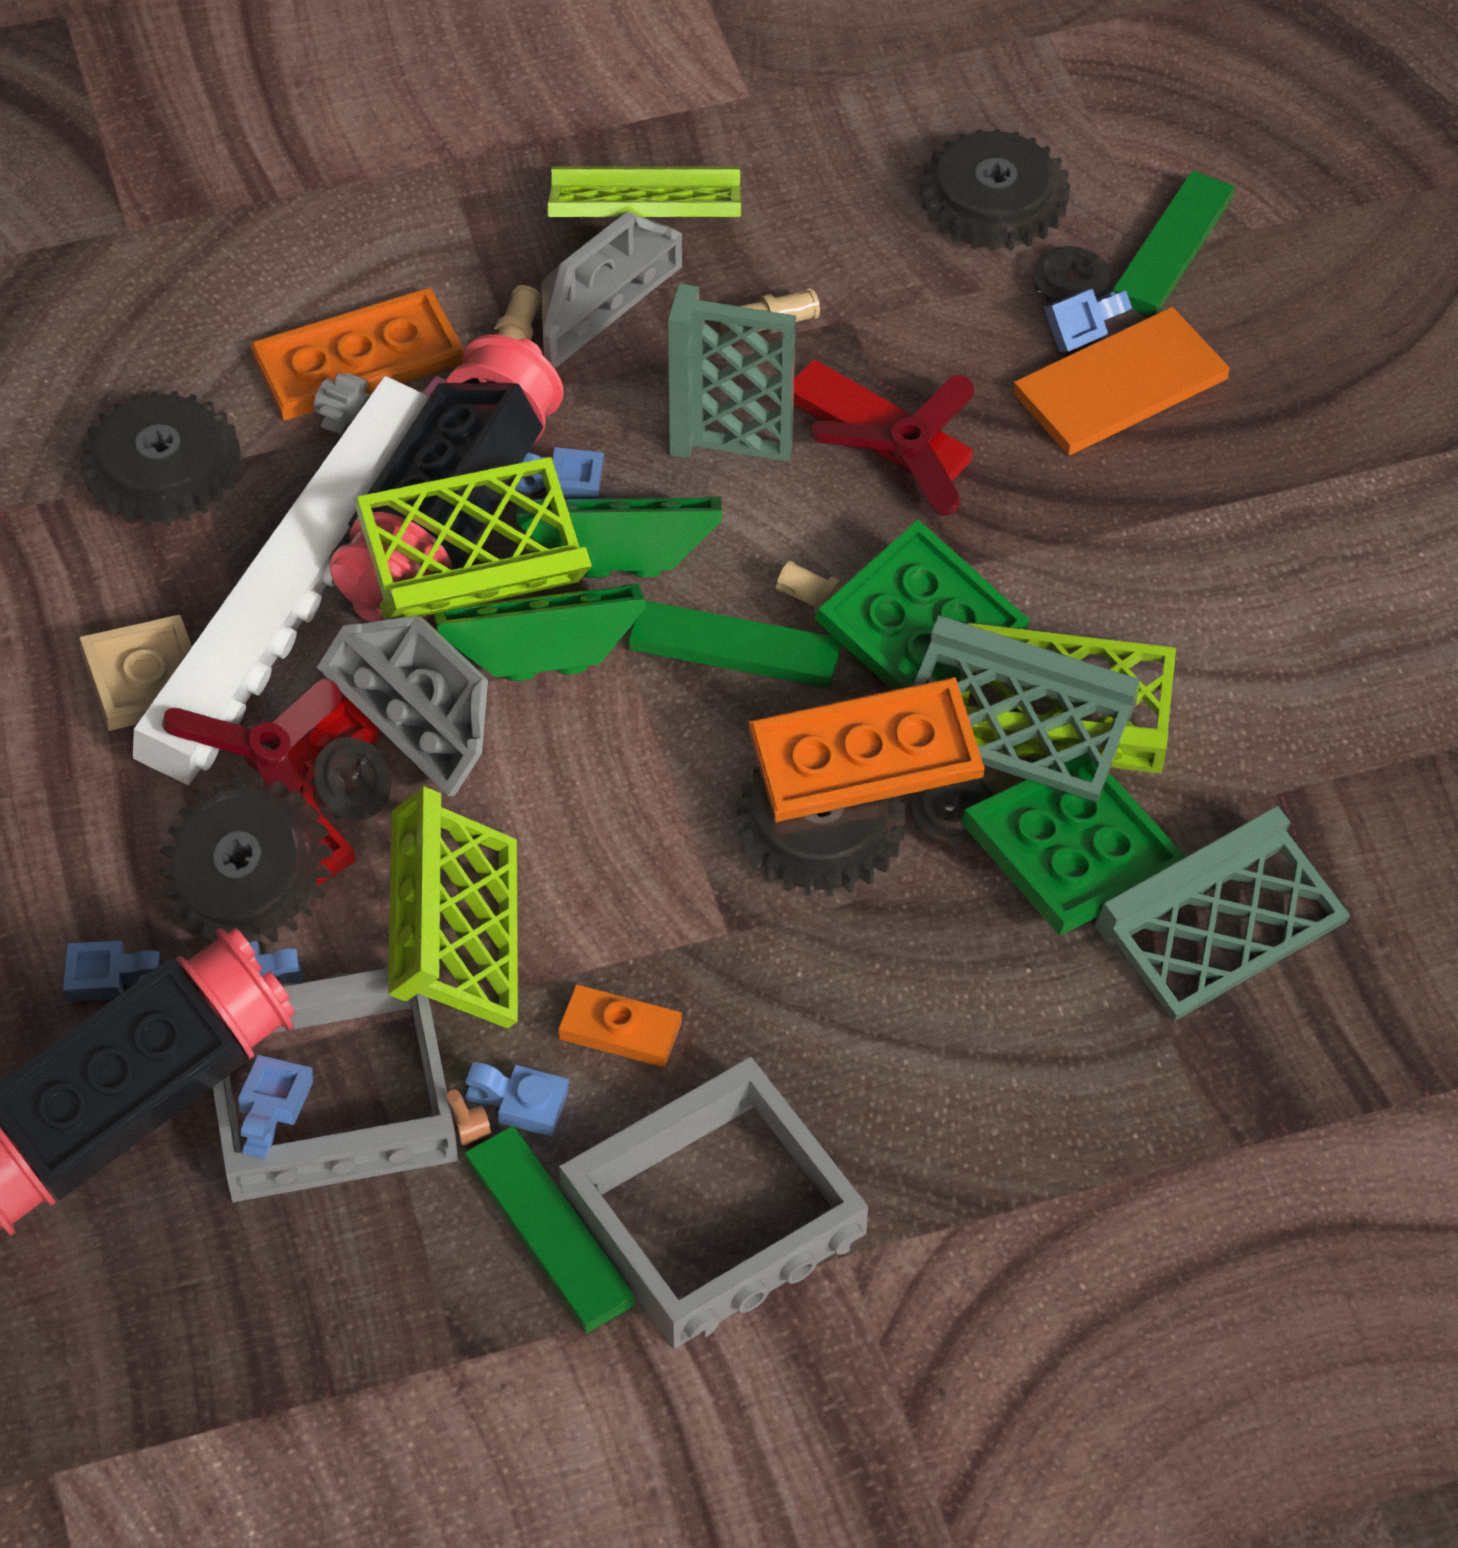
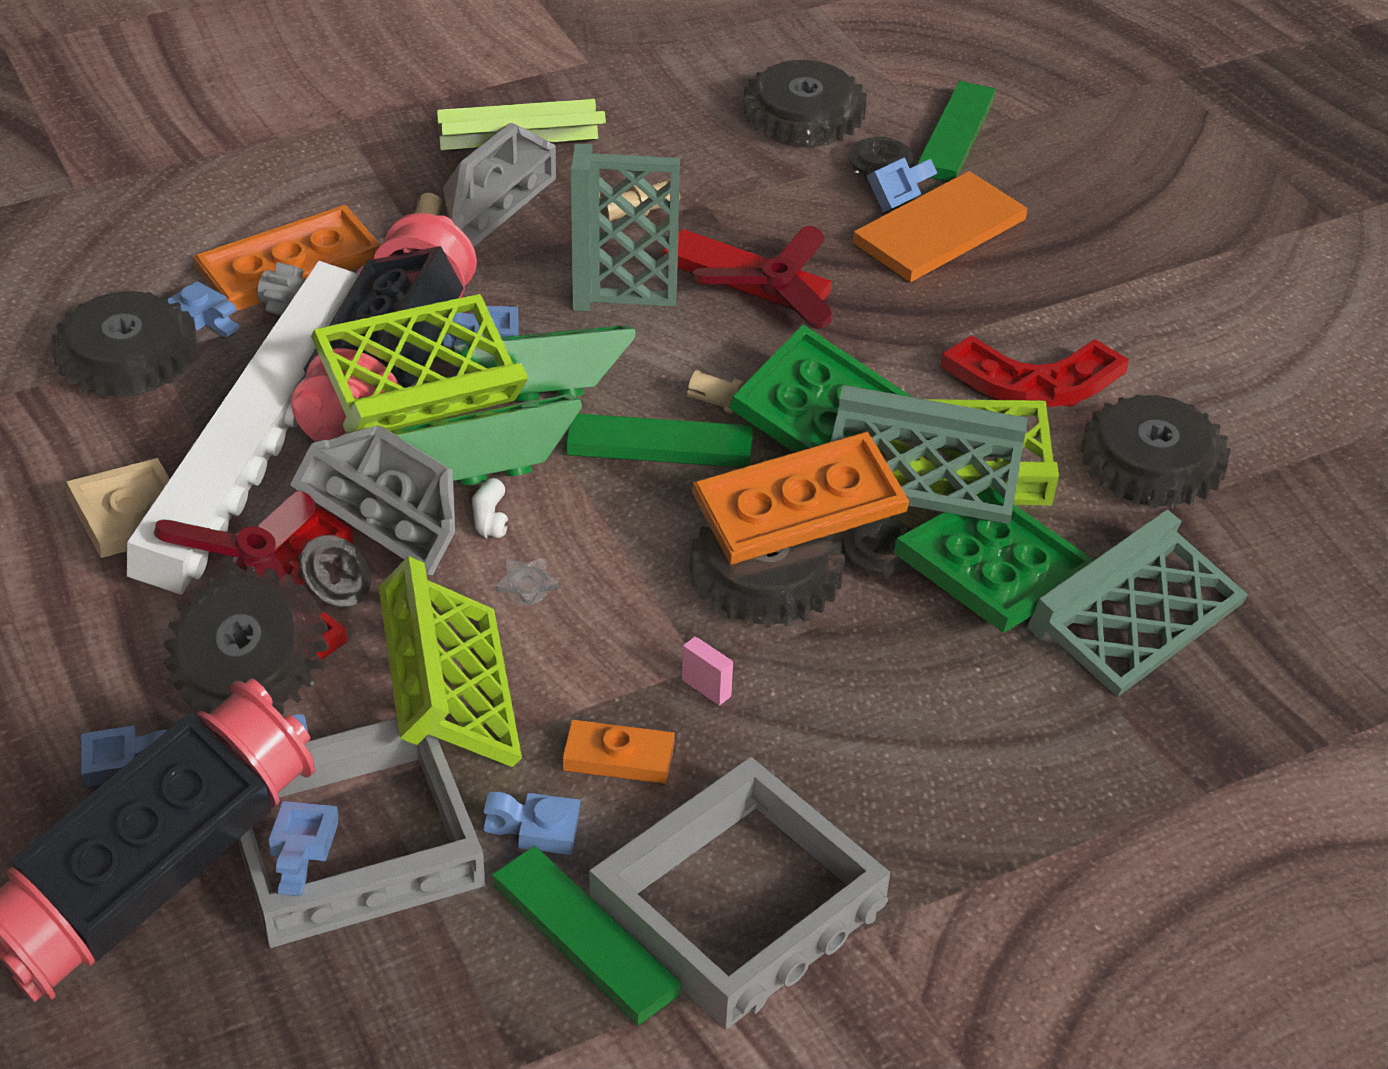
camera: 10 degrees left, 10 degrees down
(254, 414) = (207, 308): none -> medium blue plate
(471, 1123) = (496, 847): nougat hand -> none
(524, 714) = (483, 503): none -> white arm
(562, 821) = (531, 591): none -> clear plate
(729, 943) = (707, 670): none -> bright pink tile
(1182, 616) = (1056, 383): none -> red plate
(1292, 720) = (1155, 451): none -> clear smoke gear

